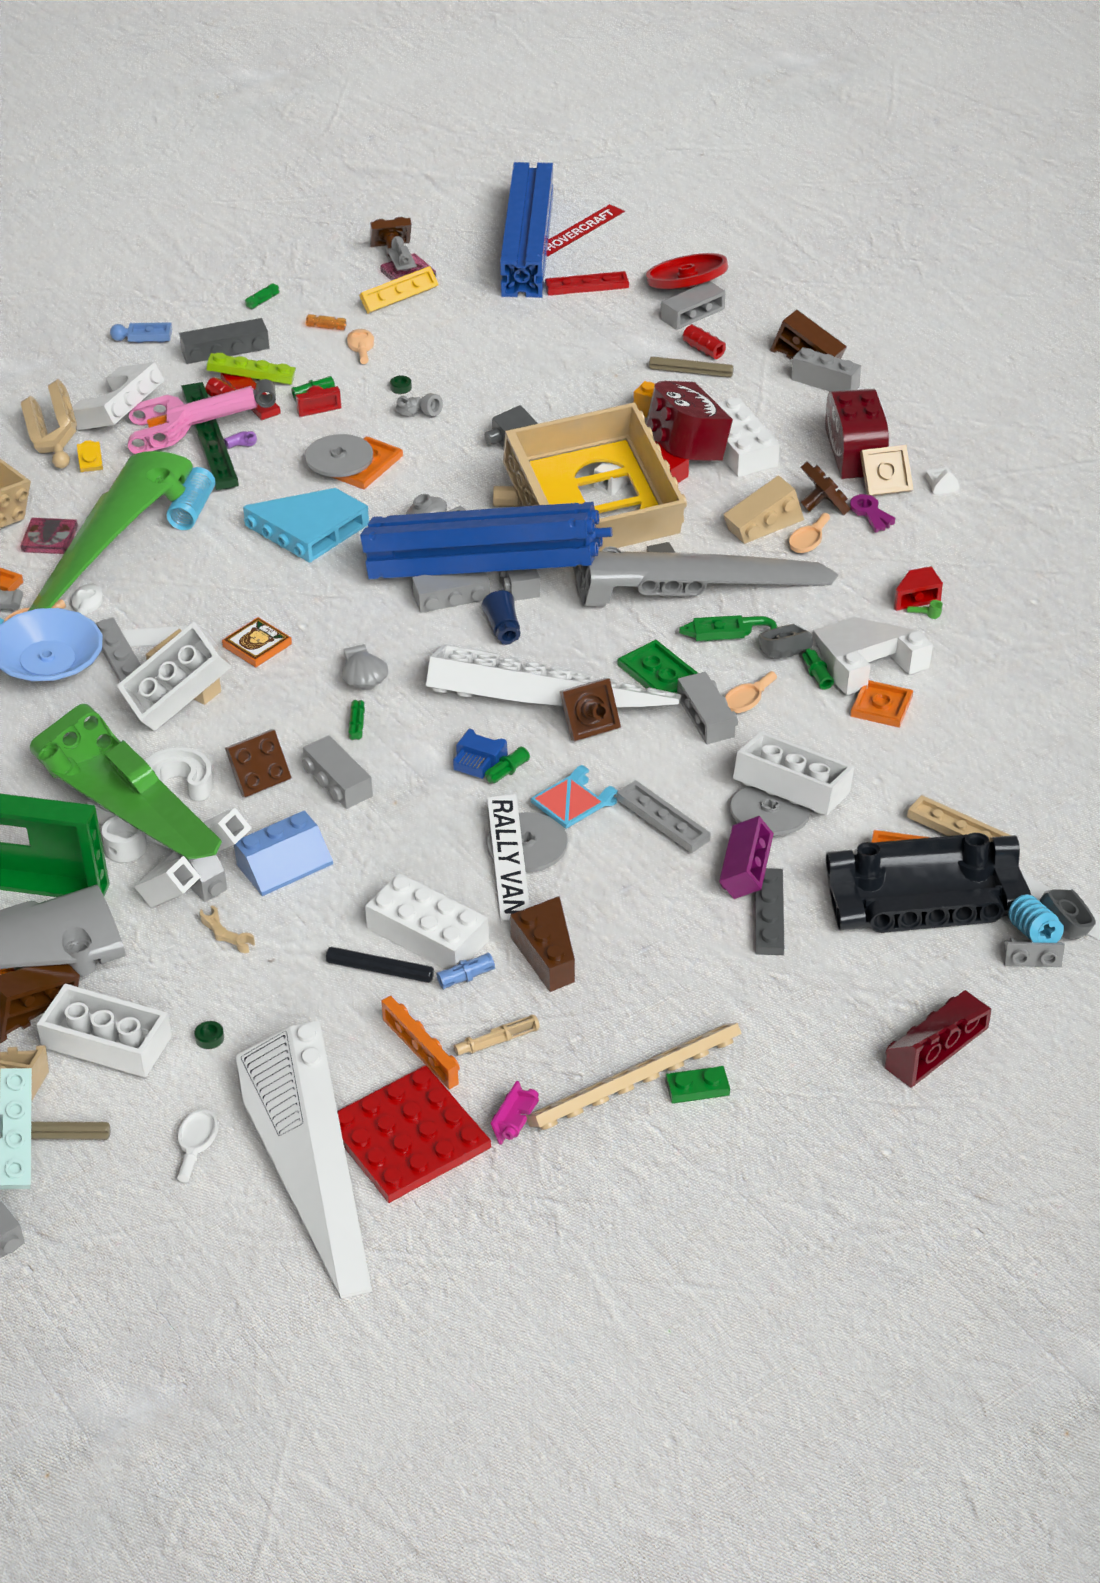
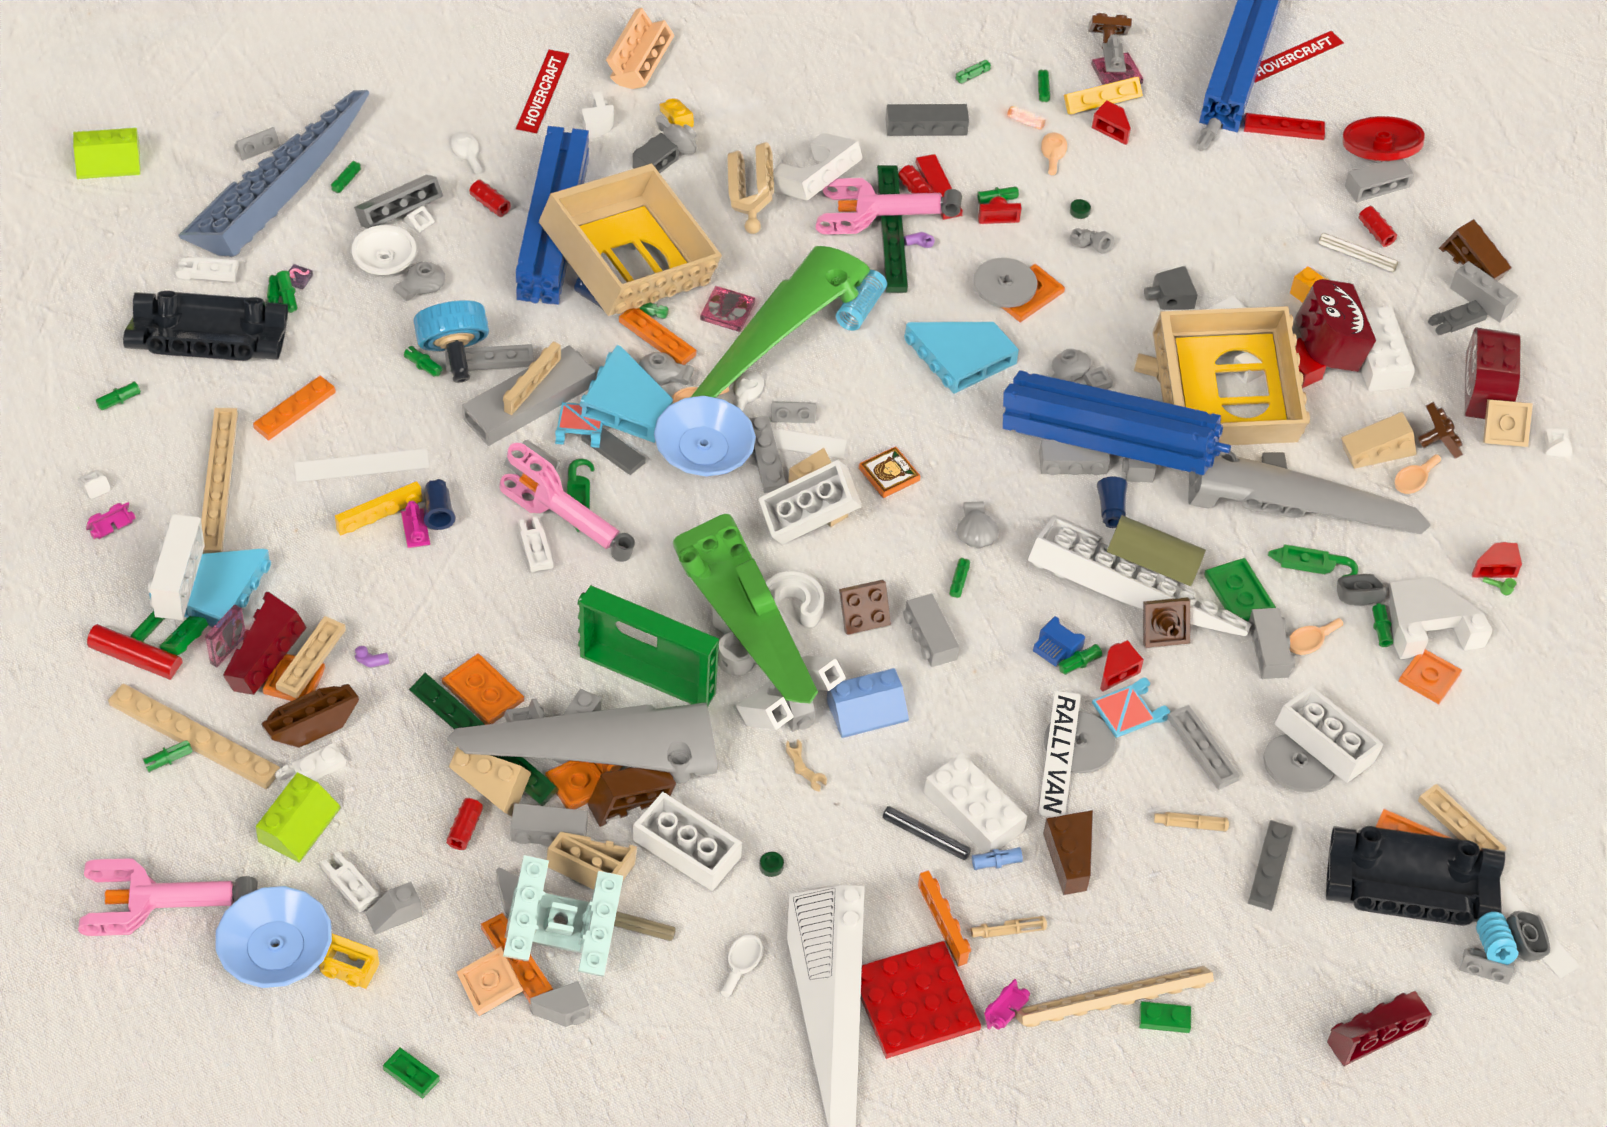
camera: 10 degrees right, 10 degrees up
(89, 456) = (779, 227): yellow bracket -> none
(140, 608) = (793, 412): none -> light grey hinge
(142, 332) = (854, 90): medium blue plate -> none
(250, 368) = (945, 160): lime plate -> none
(337, 294) = (1043, 85): none -> green axle
(414, 308) = (1112, 121): none -> red slope
(513, 301) = (1208, 134): none -> light grey axle
(552, 760) = (1120, 665): none -> red slope
(560, 647) = (1156, 550): none -> olive brick
(672, 888) = (1192, 821): none -> tan piece
(746, 857) = (1264, 809): magenta brick -> none
(806, 400) = (1458, 317): none -> dark grey hinge
(867, 506) = (1479, 454): magenta piece -> none

